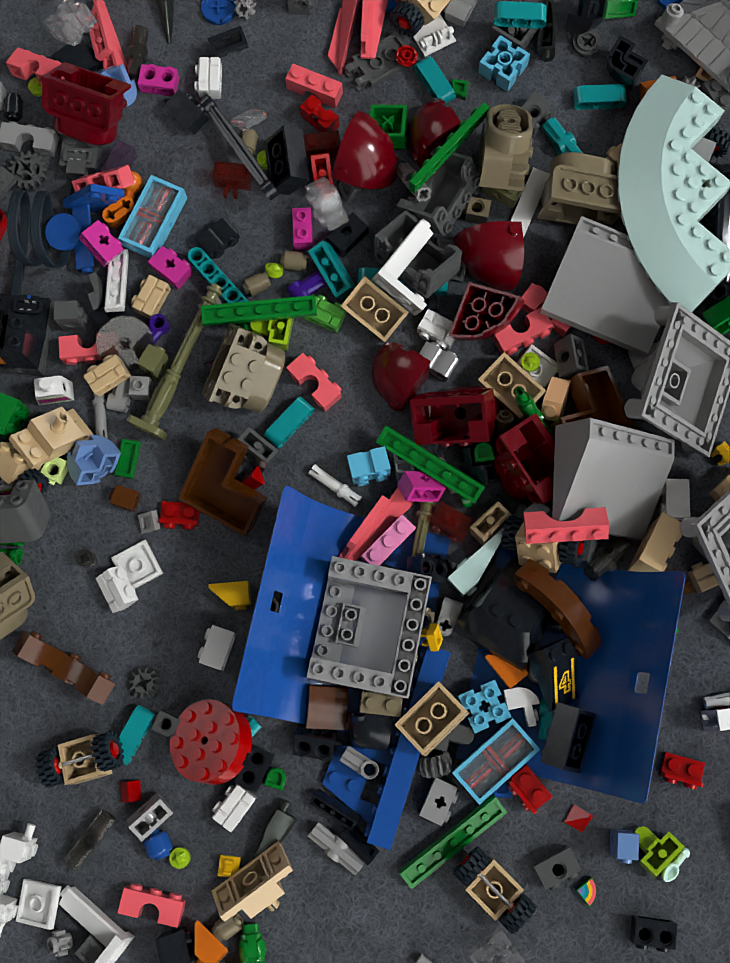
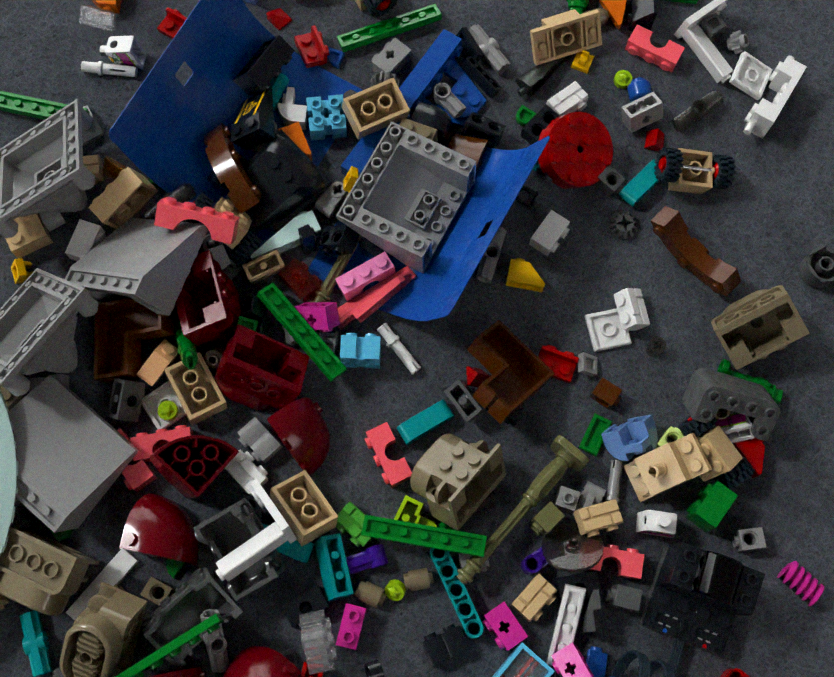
camera: 170 degrees left, 5 degrees down
(495, 760) = (332, 71): clear brick -> none

